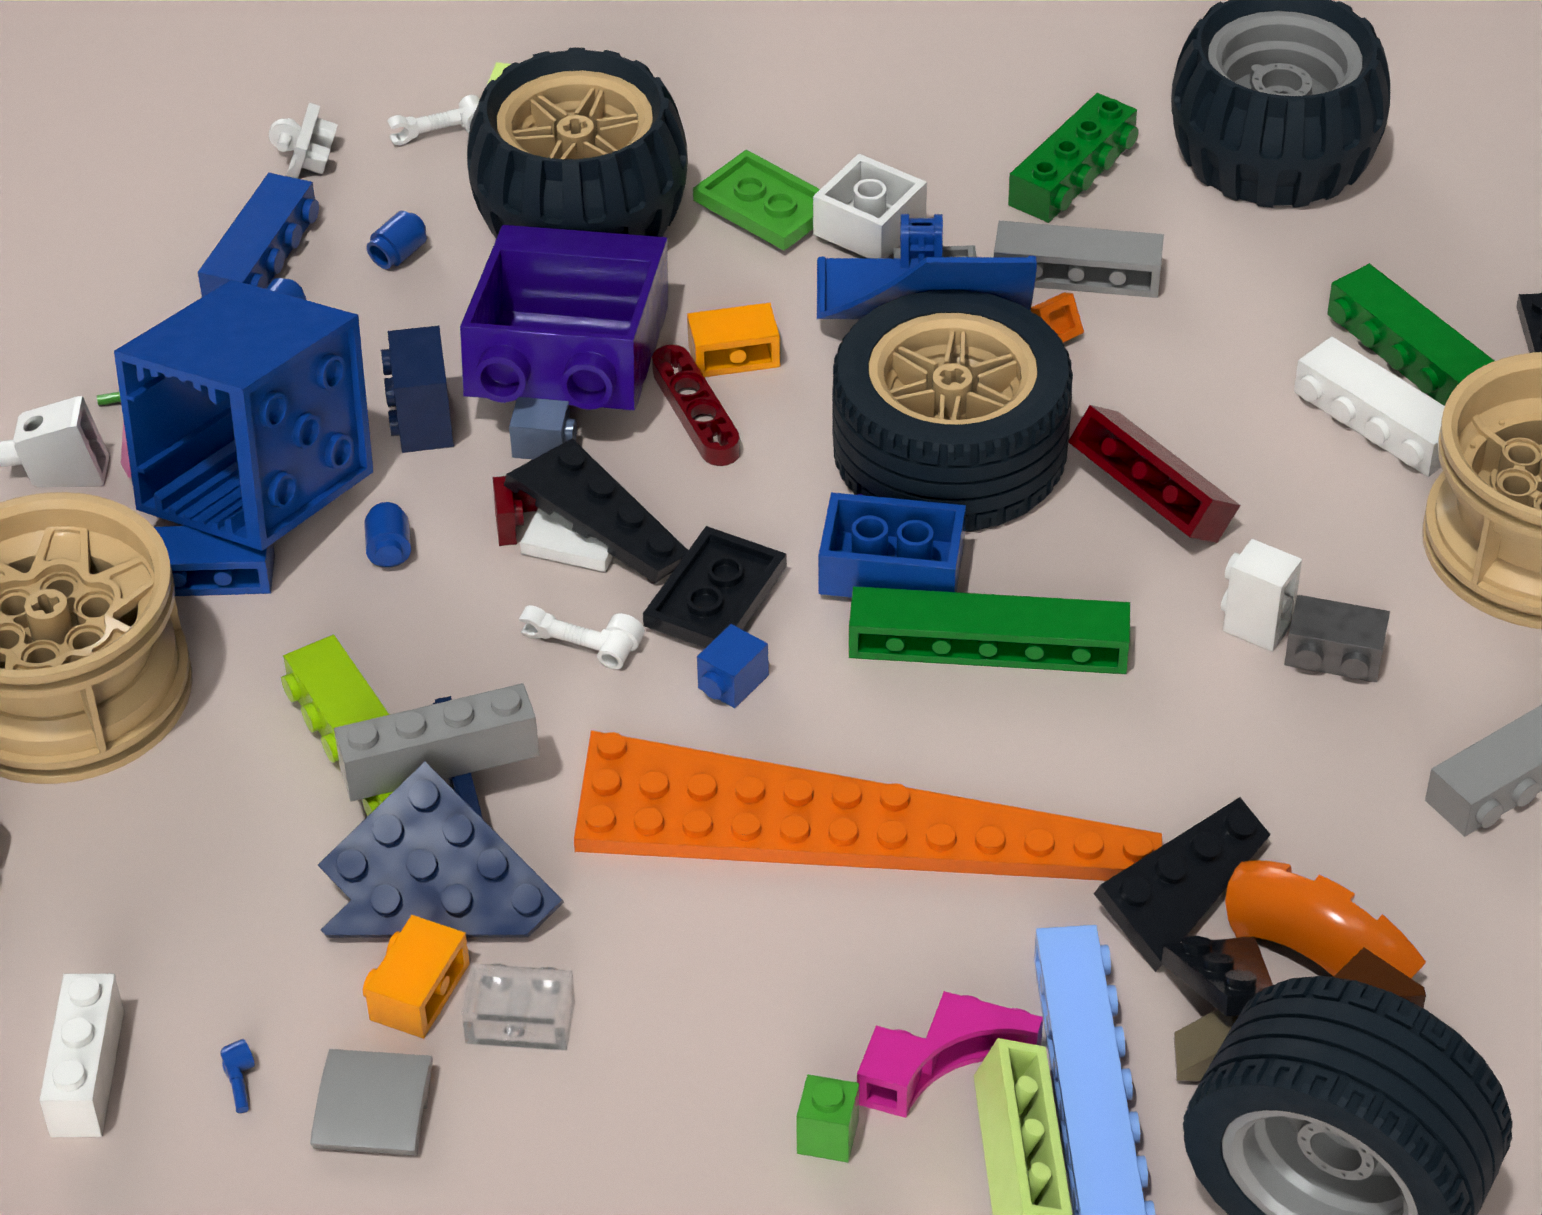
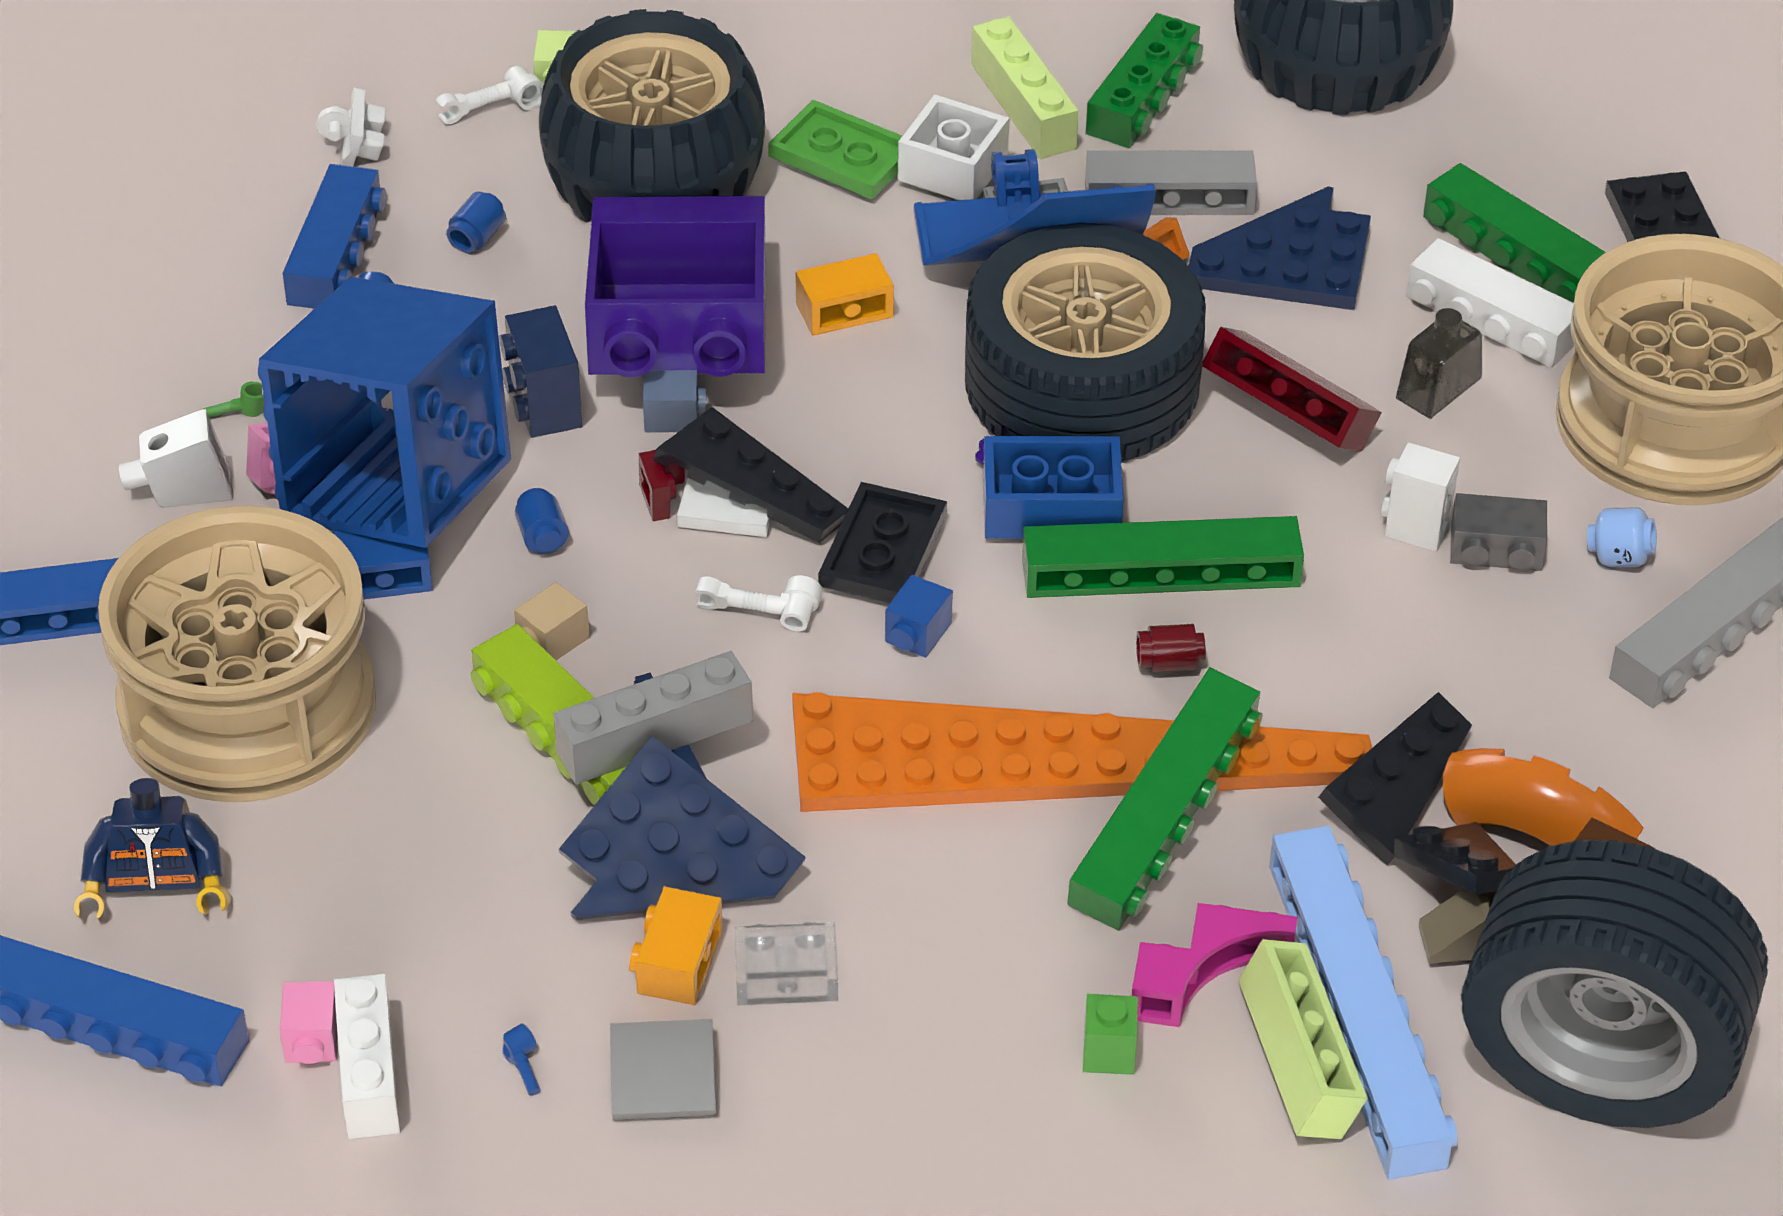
camera: 10 degrees left, 0 degrees up
(31, 1012) = (308, 1022): none -> bright pink brick
(373, 636) = (554, 620): none -> tan brick
(695, 404) = (811, 365): dark red beam -> none
(934, 879) = (1164, 799): none -> green brick
(954, 155) = (1024, 87): none -> yellowish green brick
(977, 723) = (1170, 648): none -> dark red brick
(1185, 341) = (1289, 254): none -> dark blue wing
(1310, 462) = (1440, 364): none -> clear smoke torso
(1464, 656) = (1622, 537): none -> light blue head

